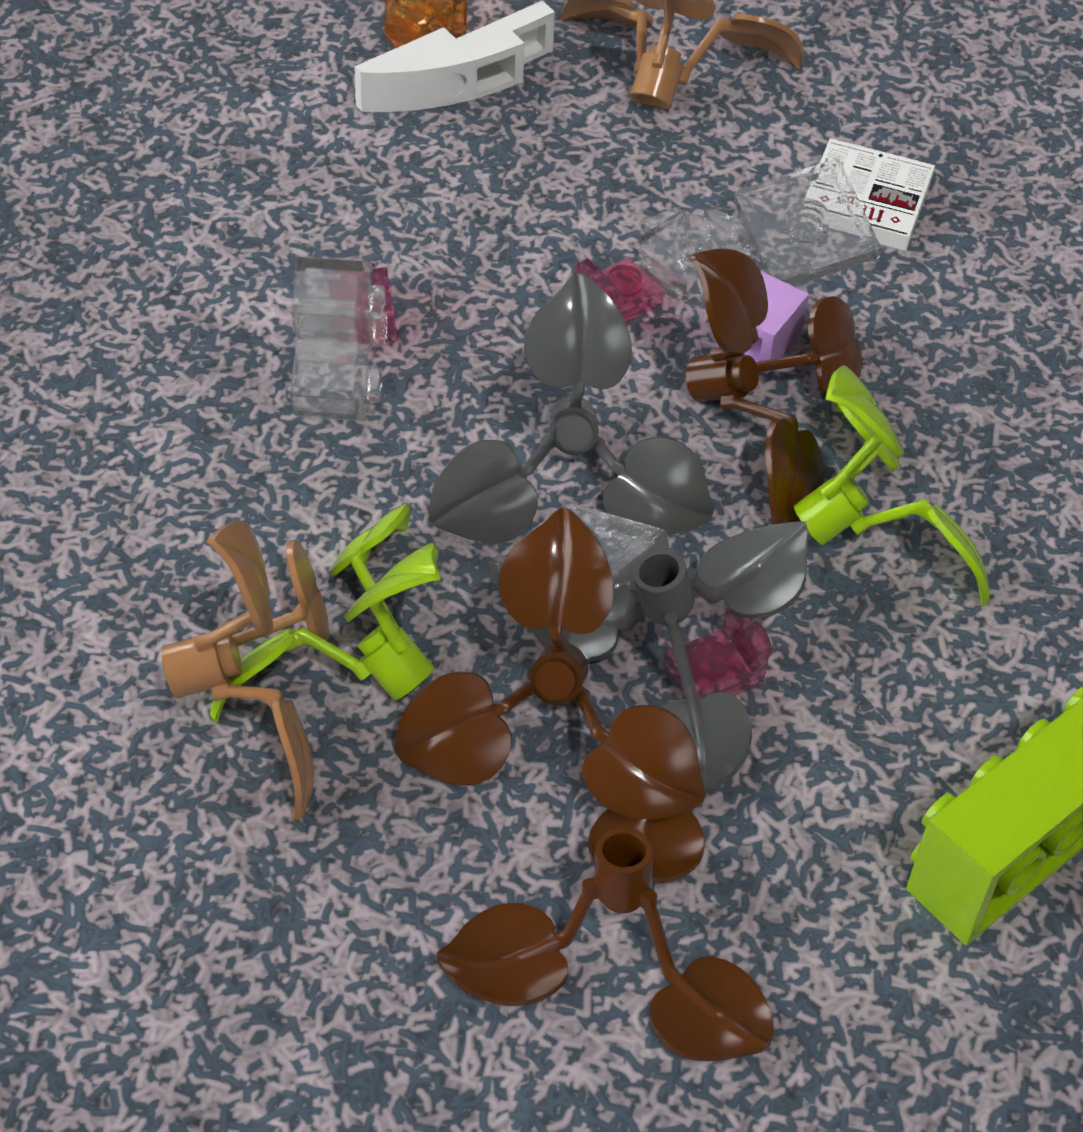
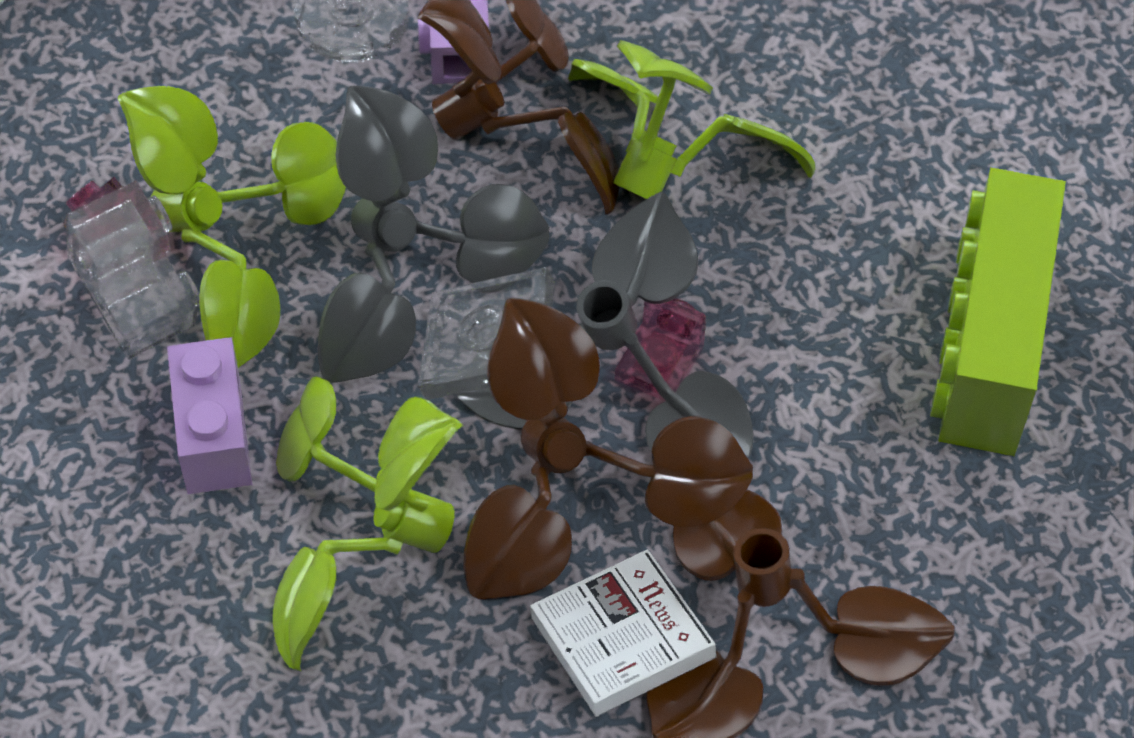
camera: 35 degrees left, 5 degrees up
(214, 657) = (282, 617): medium nougat plant -> none
(308, 484) = (209, 415): none -> lavender brick
(419, 253) = (169, 142): none -> lime plant
(486, 858) = (622, 632): none -> white tile
(626, 285) = (313, 84): clear pink bracket -> none

